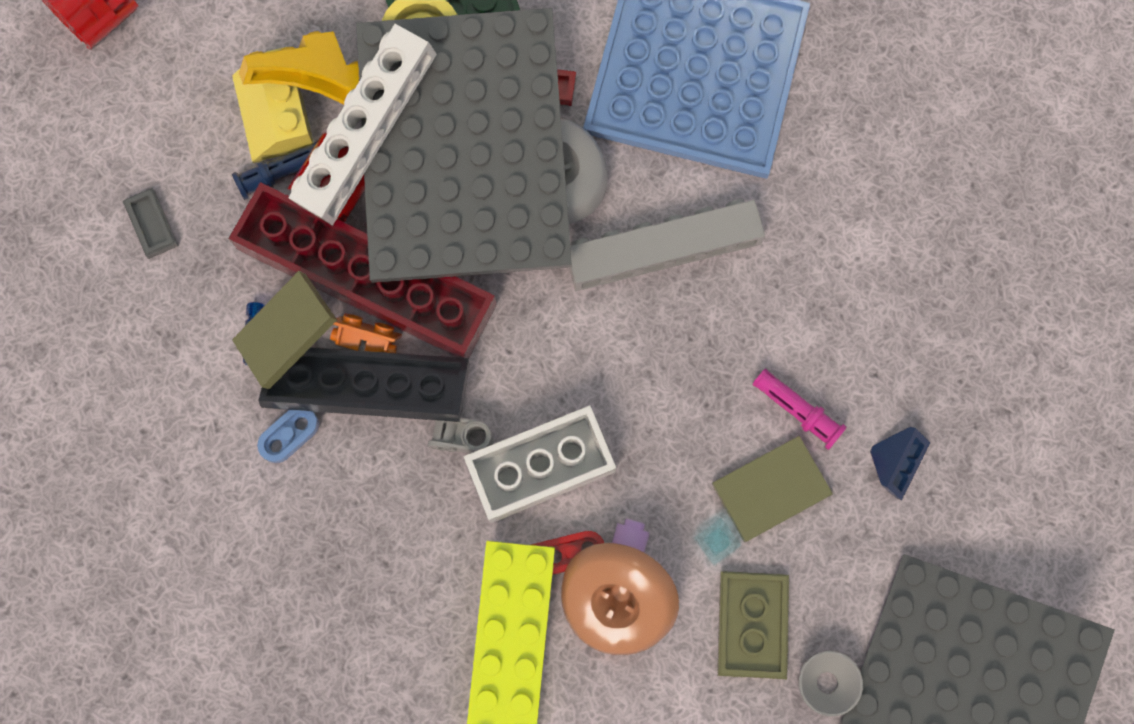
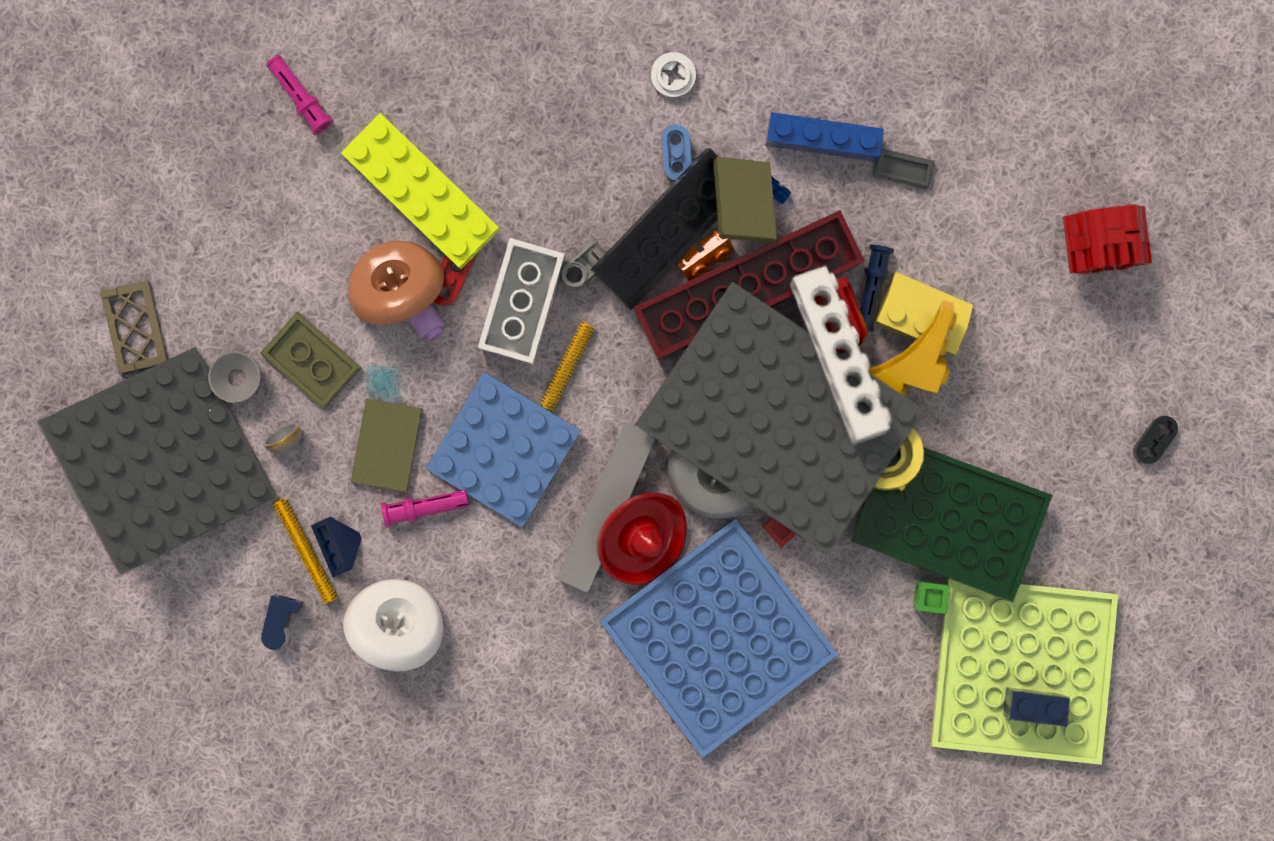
camera: 125 degrees right, 10 degrees up
(171, 310) = (824, 137): none -> blue brick
(201, 488) = (666, 63): none -> white gear
(576, 378) = (568, 362): none -> yellow axle
(668, 189) = (642, 538): none -> red hat
(688, 378) = (503, 449): none -> medium blue plate
(852, 583) = (285, 446): none -> light grey piece
(928, 486) = (304, 550): none -> yellow axle
(929, 347) = (394, 625): none -> white hat
(1021, 454) = (275, 628): none -> dark blue leg

